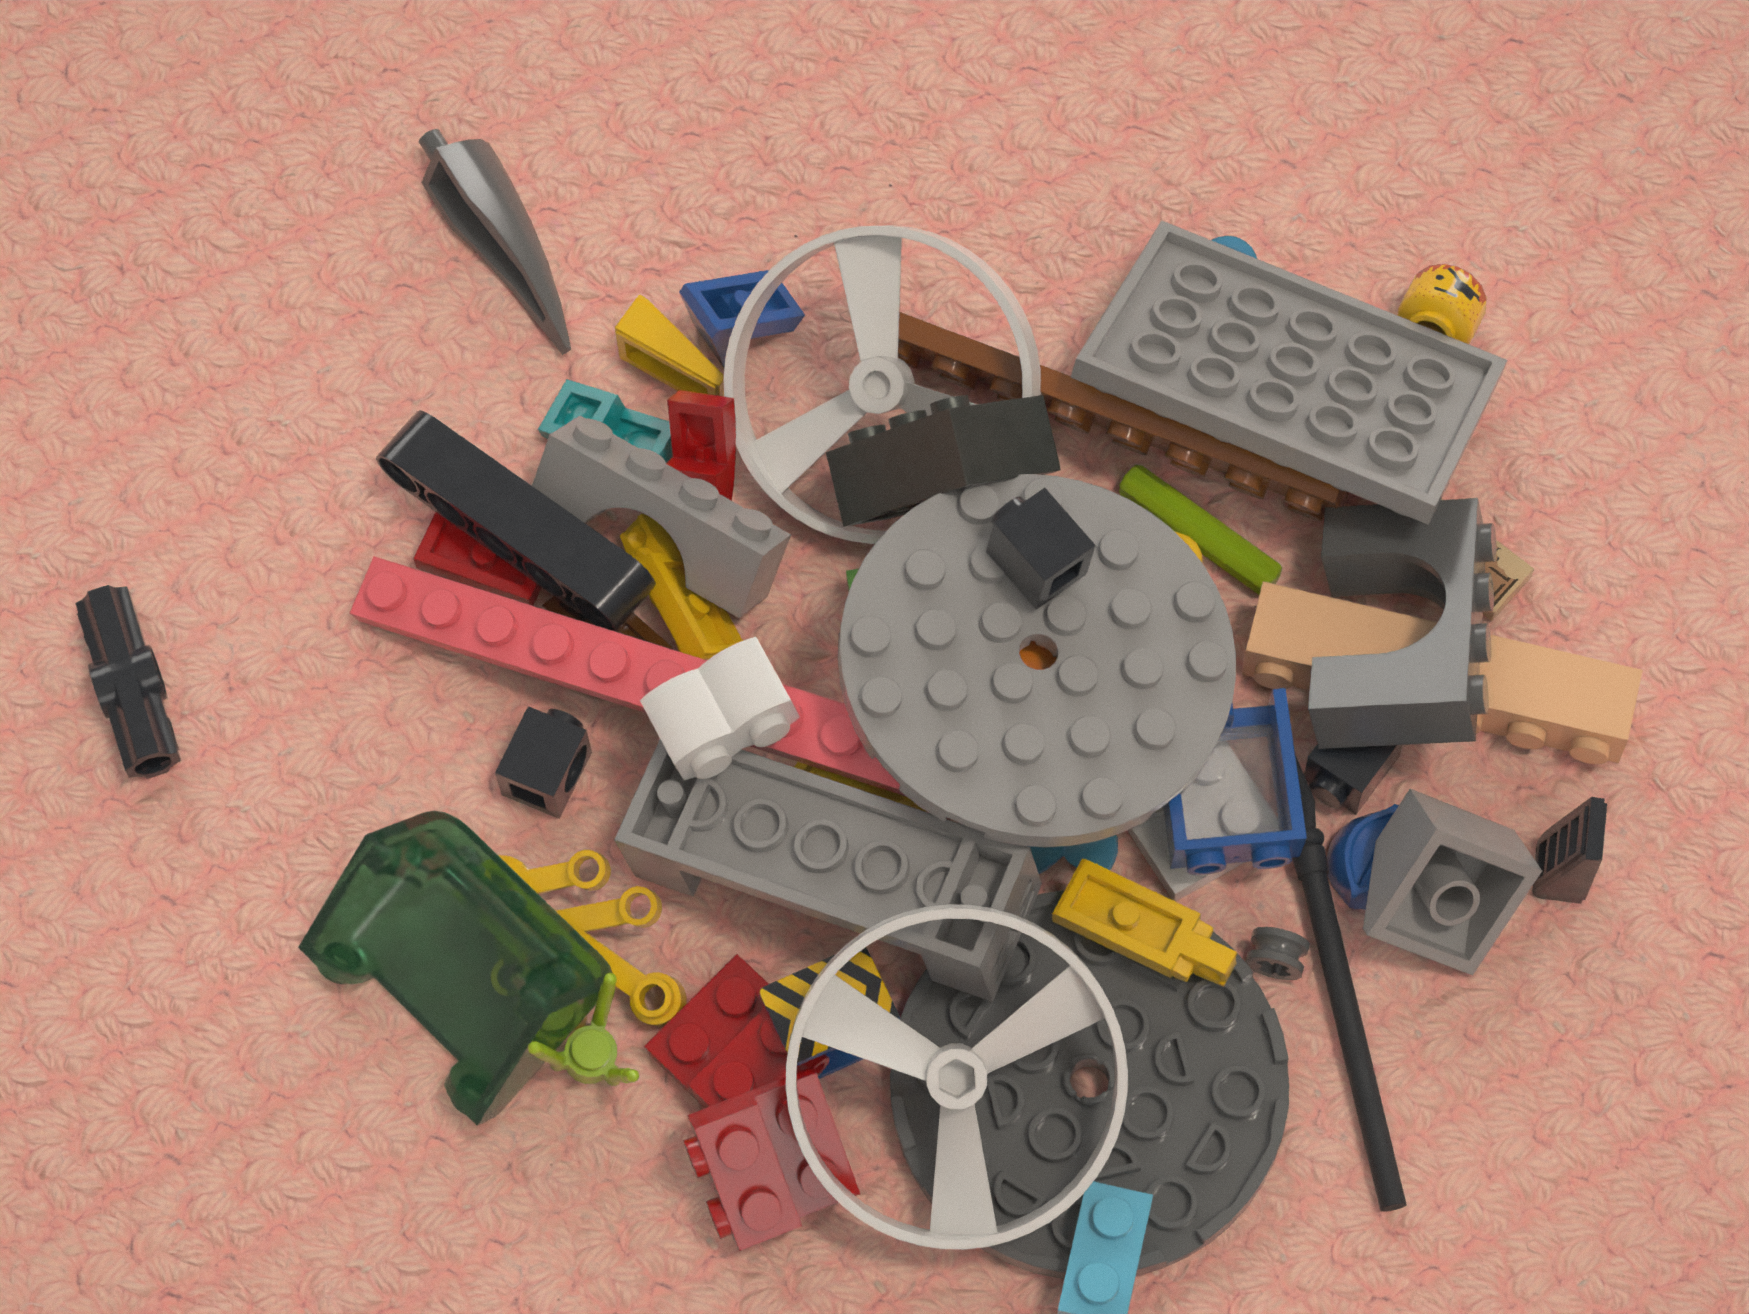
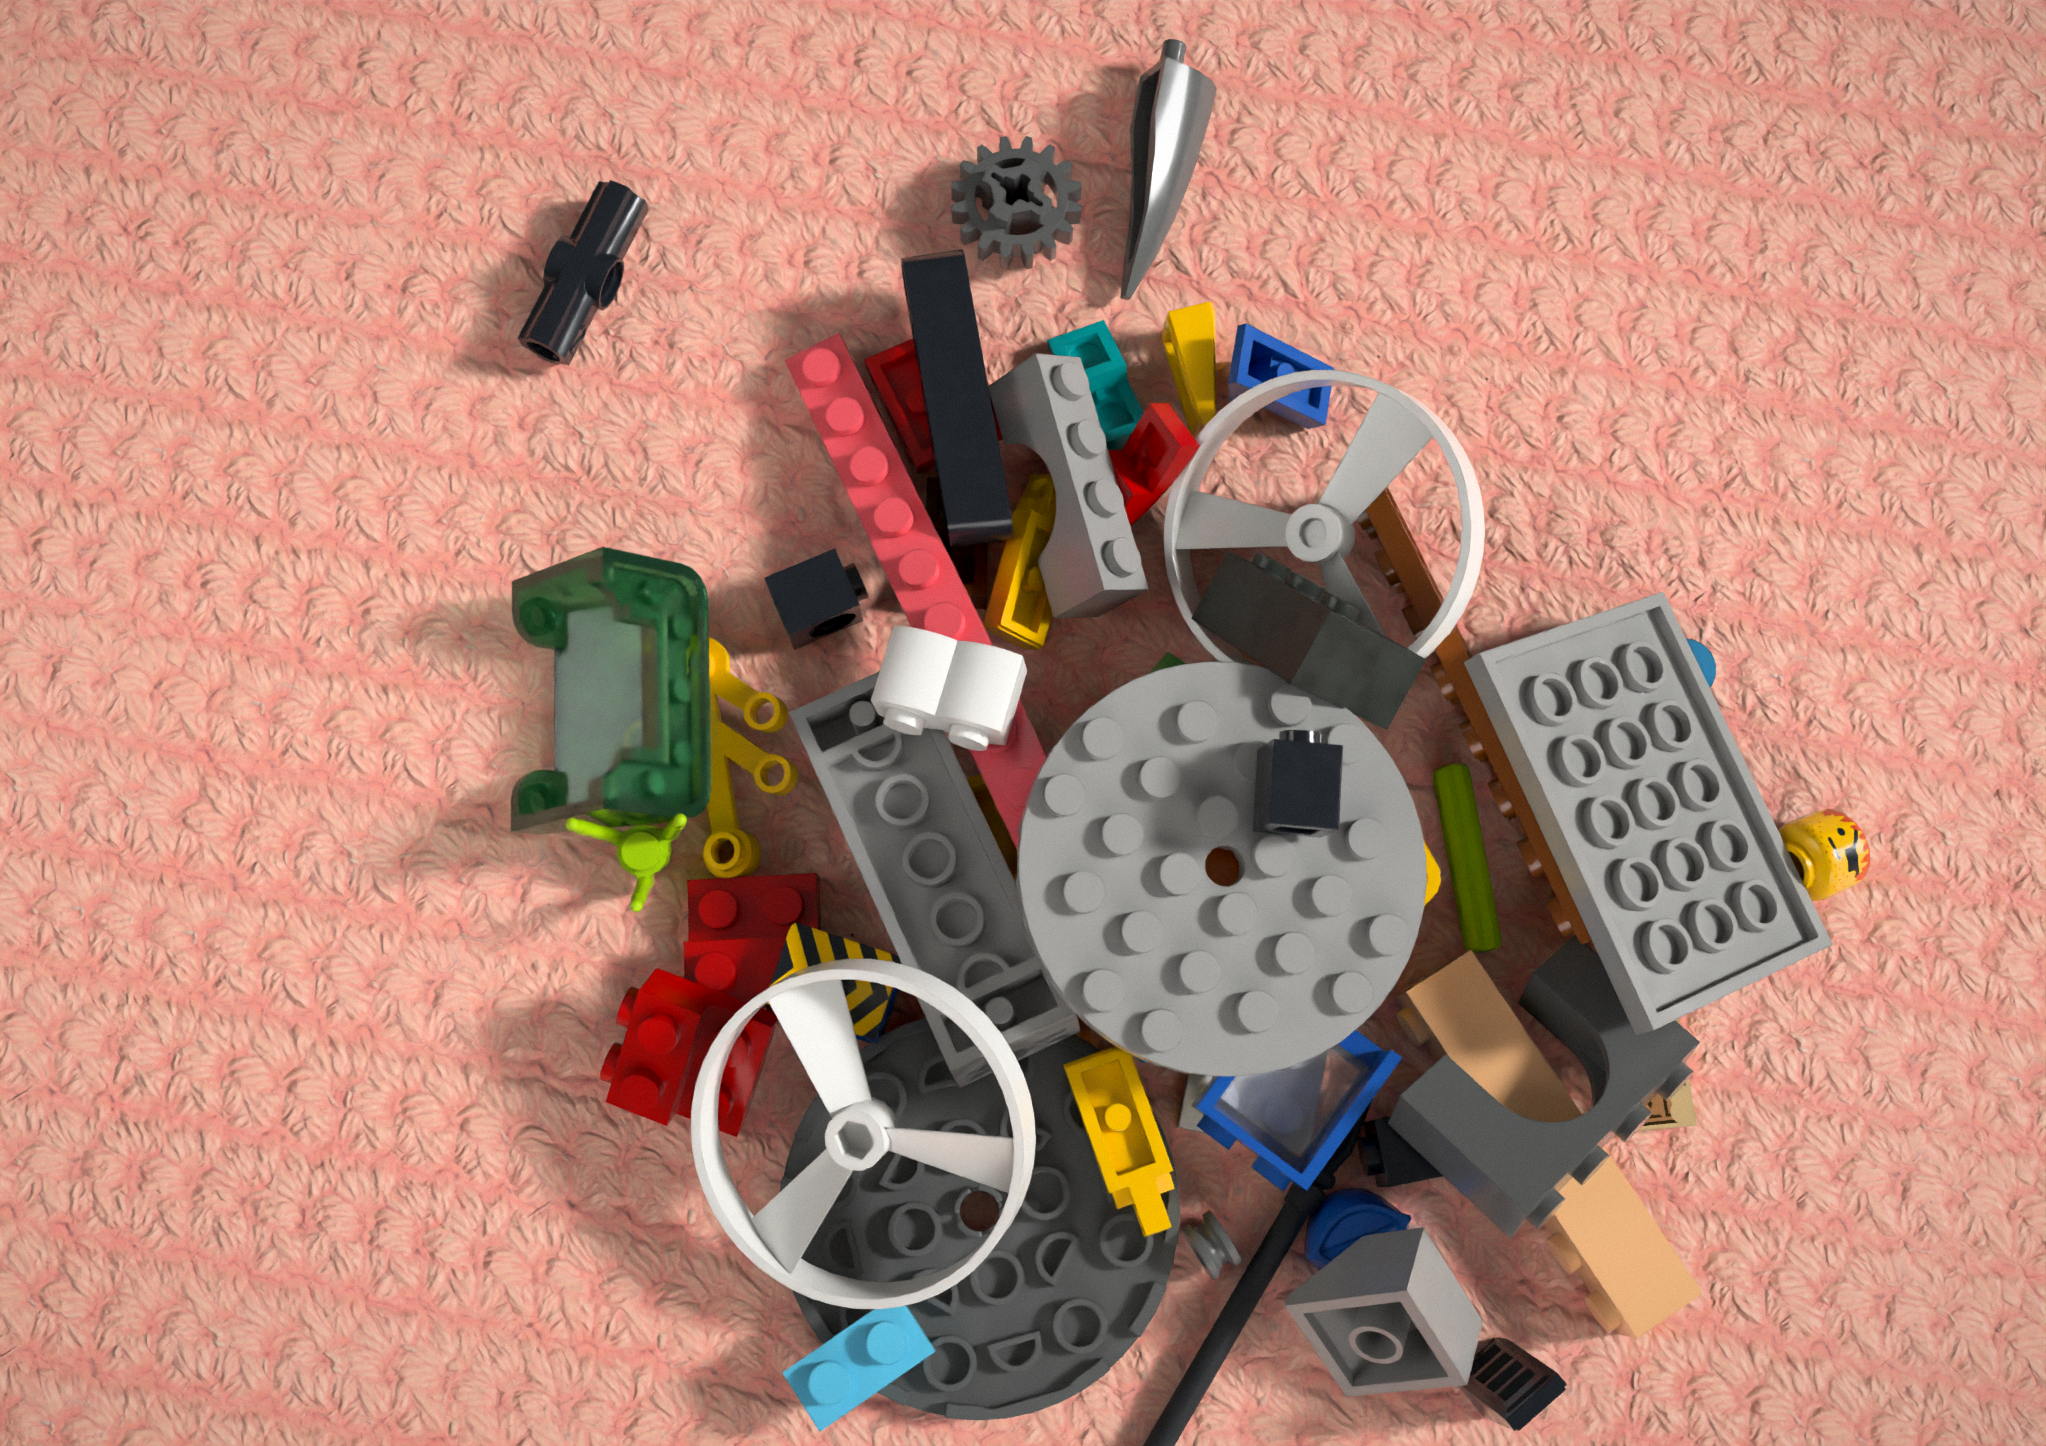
camera: 35 degrees right, 10 degrees up
(443, 365) = (1019, 212): none -> dark grey gear

